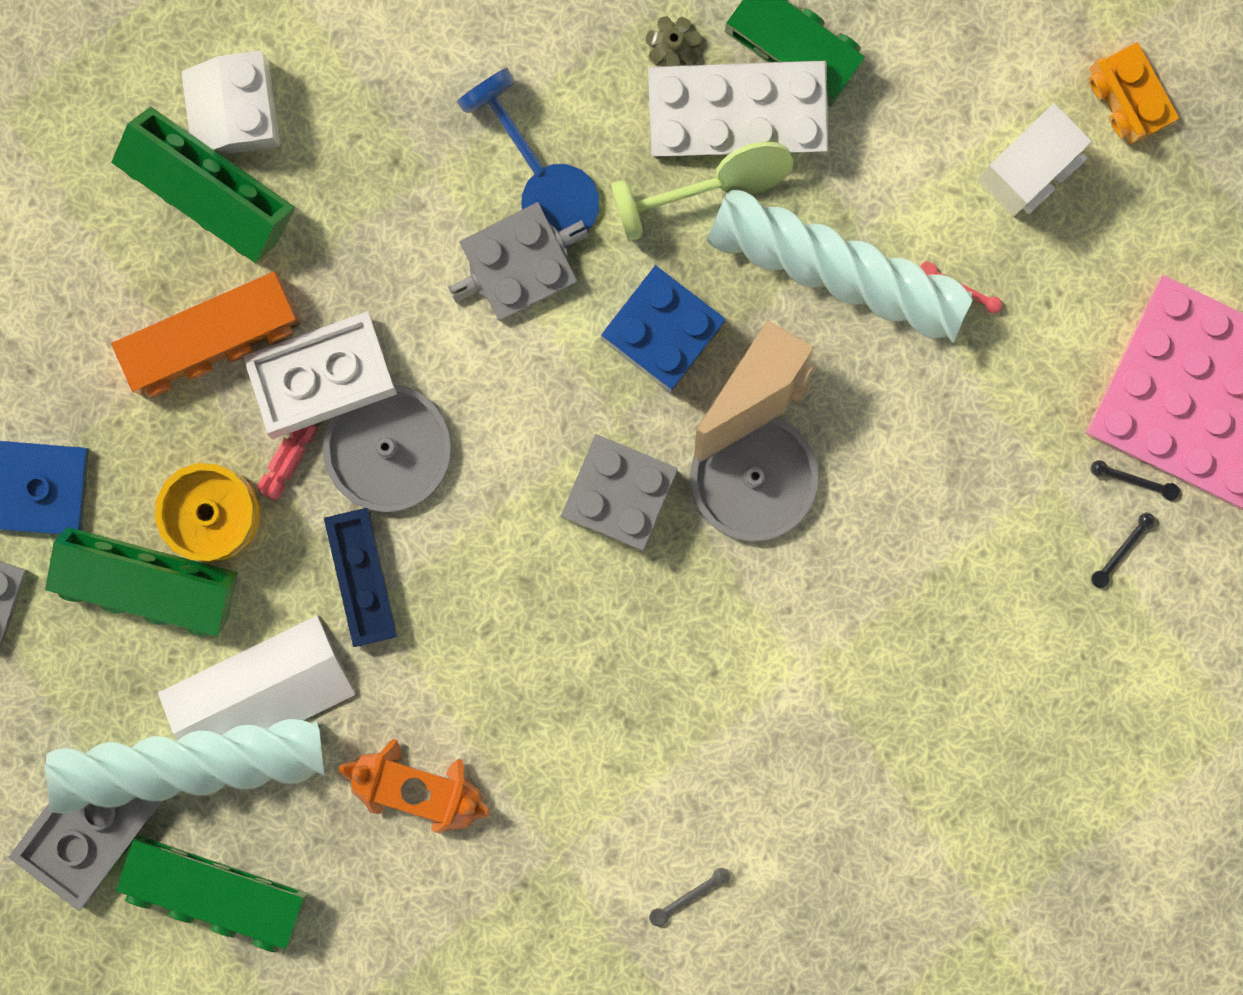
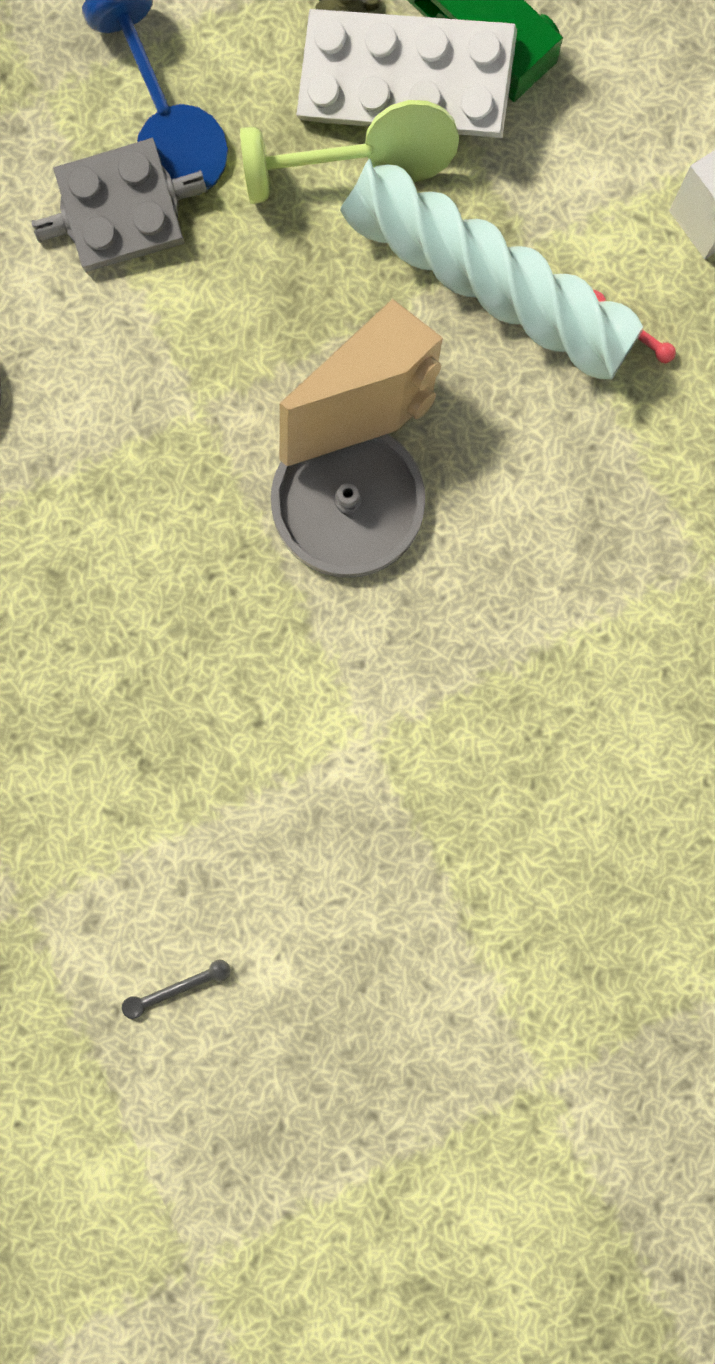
camera: 10 degrees right, 5 degrees down
(619, 492) = (182, 484): light grey brick -> none
(662, 329) = (270, 306): blue brick -> none

